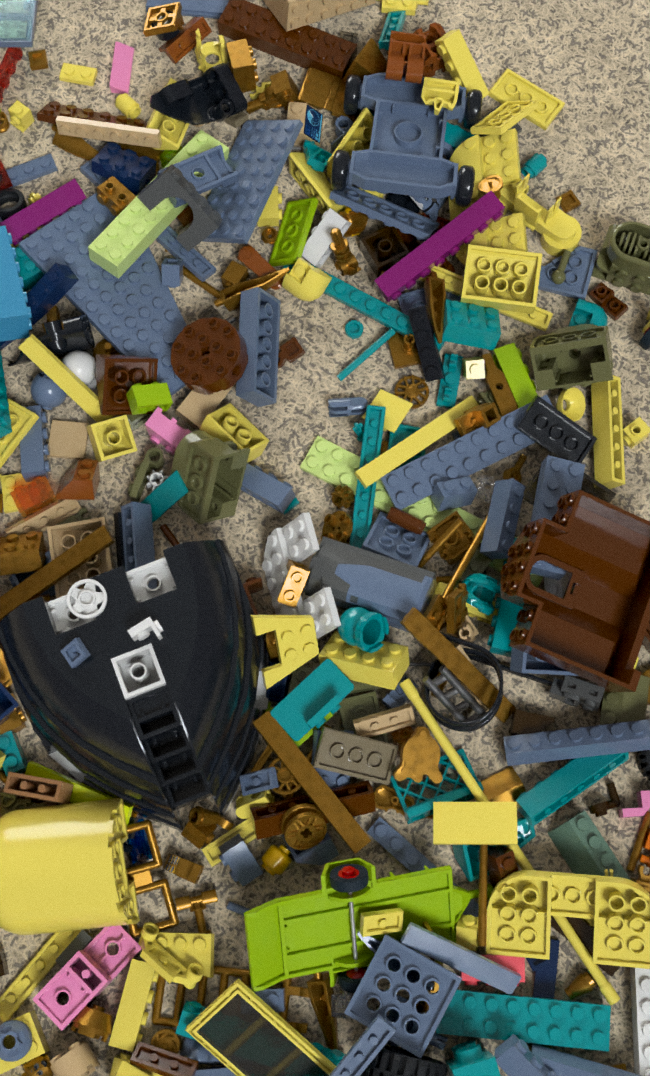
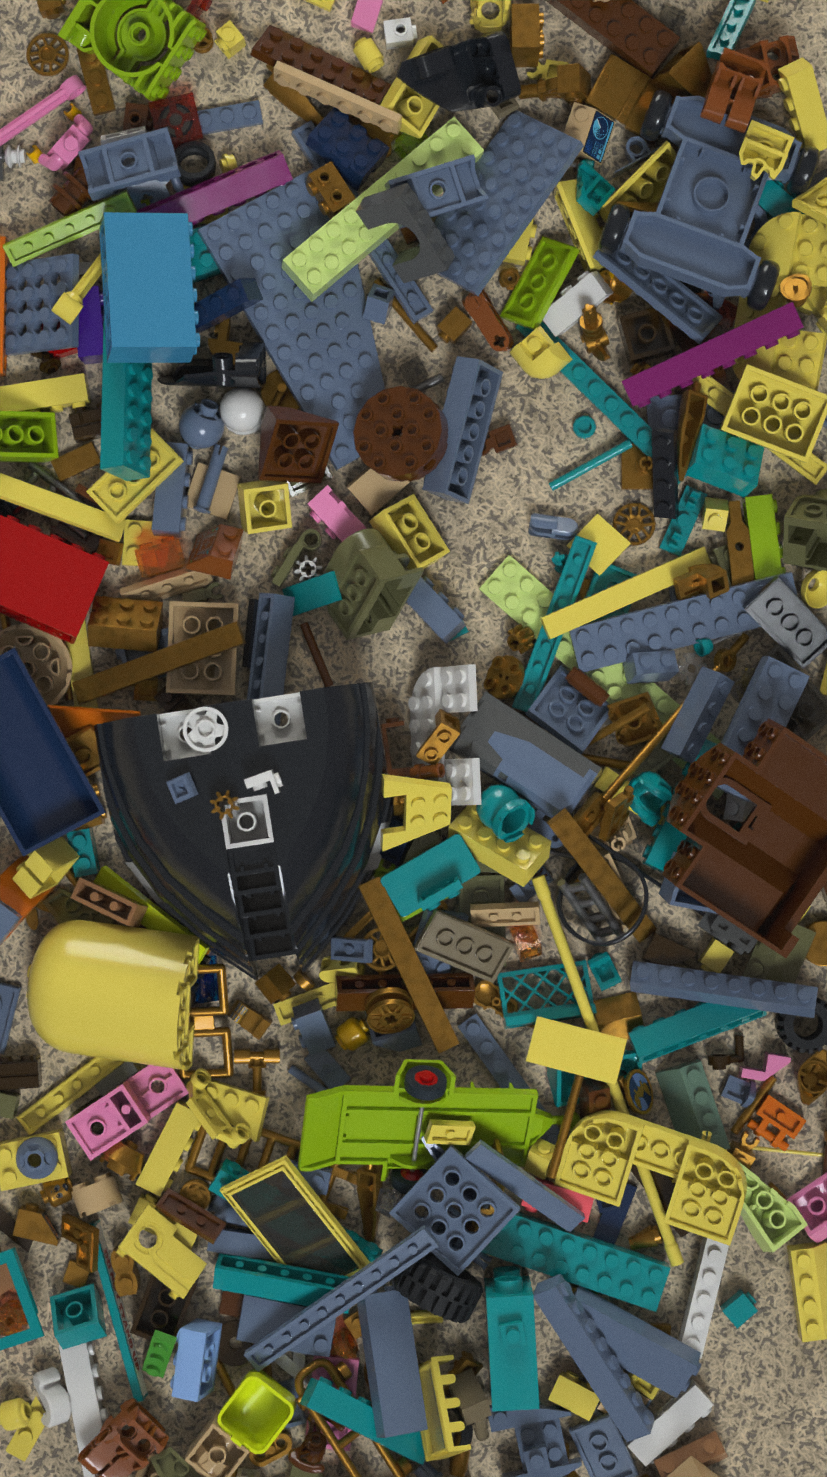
camera: 15 degrees right, 15 degrees up
(63, 377) = (221, 420): light yellow tile -> none
(64, 429) = (211, 479): none -> sand blue pin
(111, 654) = (219, 808): none -> pearl gold gear
(147, 86) = (399, 33): none -> white brick
(149, 397) = (319, 470): lime brick -> none
(202, 817) = (282, 973): pearl gold cone -> none
(232, 295) = (445, 352): pearl gold piece -> none
(257, 893) = (327, 1069): none -> sand blue plate
(295, 609) = (426, 772): none -> dark orange animal
(412, 646) = (544, 829): none -> sand blue leg
(419, 757) = (533, 964): pearl gold tile -> none
(480, 753) = (604, 970): none -> teal bracket
(494, 467) = (706, 645): none -> teal hinge
(536, 851) = (637, 1091): none -> shield
(571, 716) = (715, 956): none -> light yellow brick
(624, 831) = (739, 1090): none -> sand blue tile

